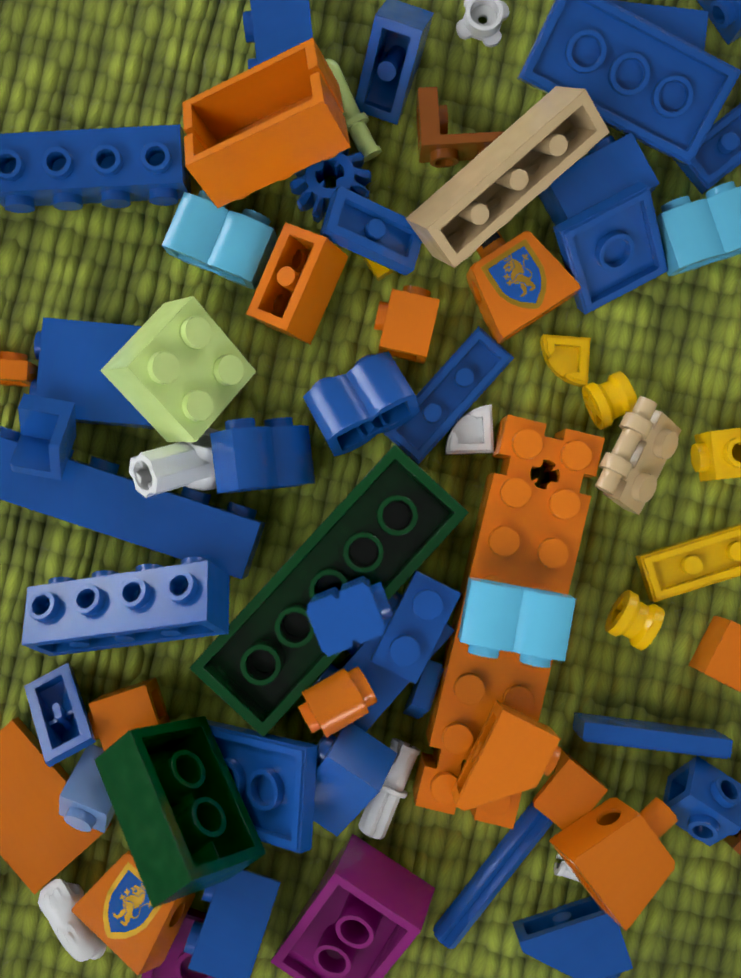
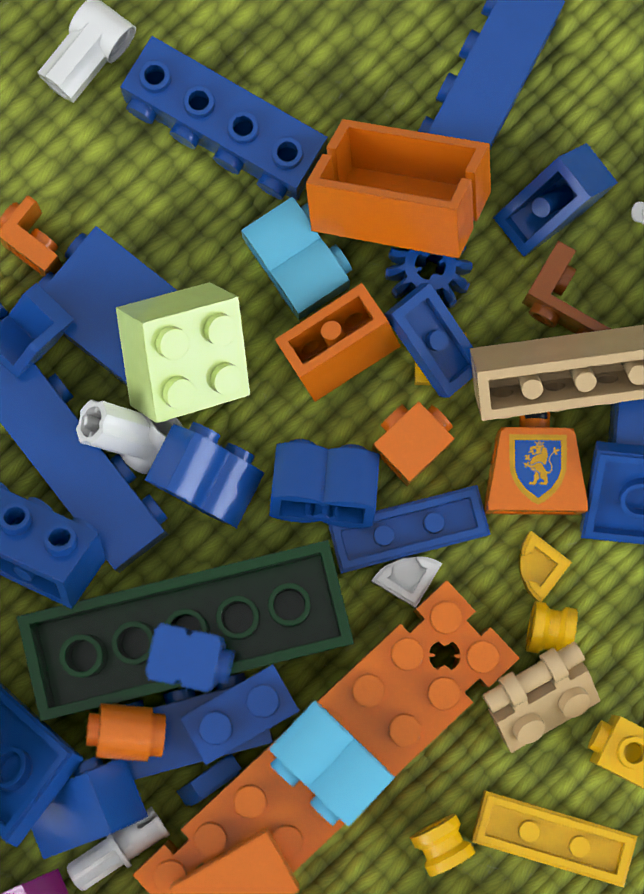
camera: 35 degrees right, 5 degrees down
(354, 119) = (485, 228): yellowish green piece -> none

